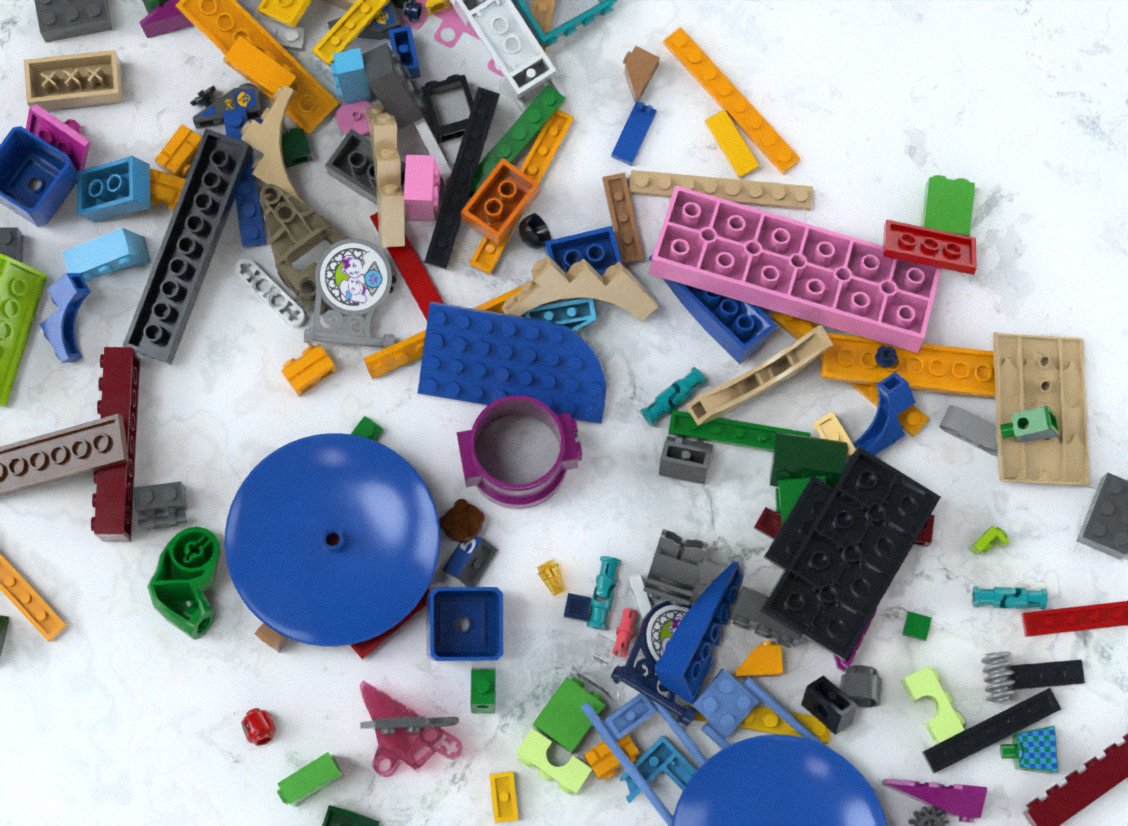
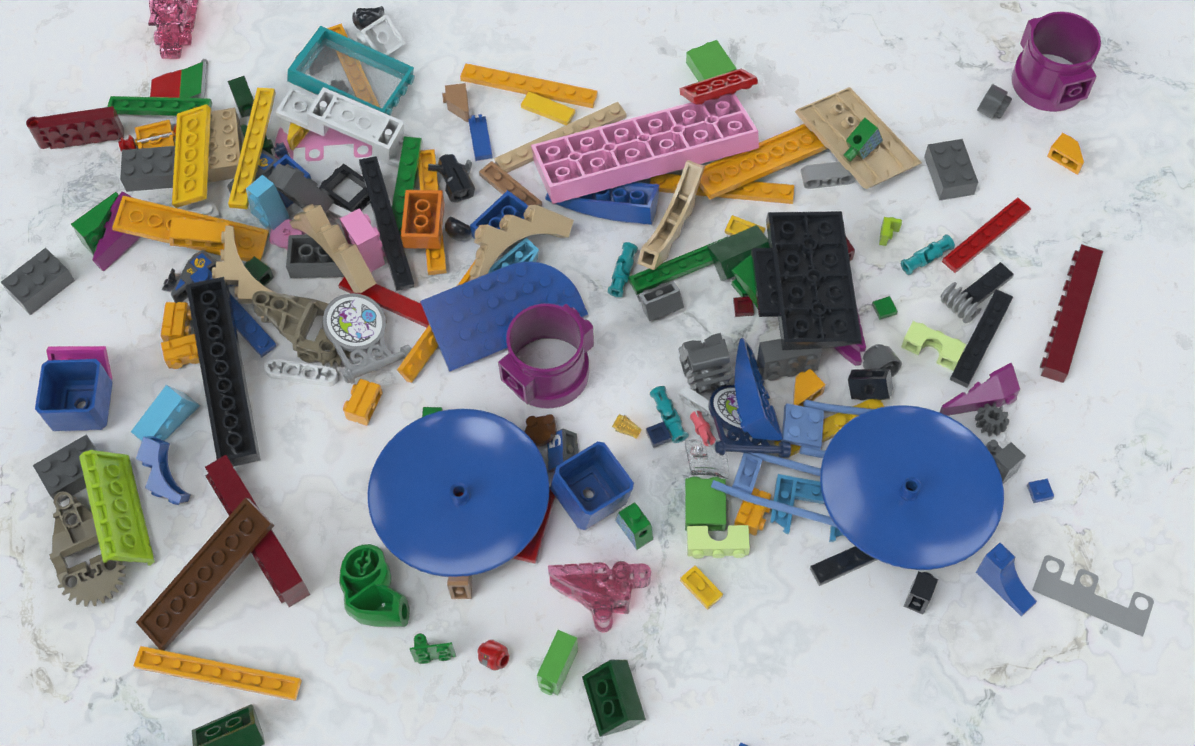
camera: 30 degrees left, 15 degrees down
(74, 80) = (68, 320): tan brick -> none
(113, 189) = (142, 368): dark azure brick -> none
(160, 499) = (316, 551): dark grey brick -> none
(194, 678) = (424, 653): none -> green hinge
(411, 724) = (602, 569): dark grey plate -> none
(574, 166) = (456, 177): none -> black piece
(885, 428) = (765, 179): blue arch -> none
(886, 362) = (741, 161): dark blue plate -> none
(1033, 750) = (1017, 332): torso -> none

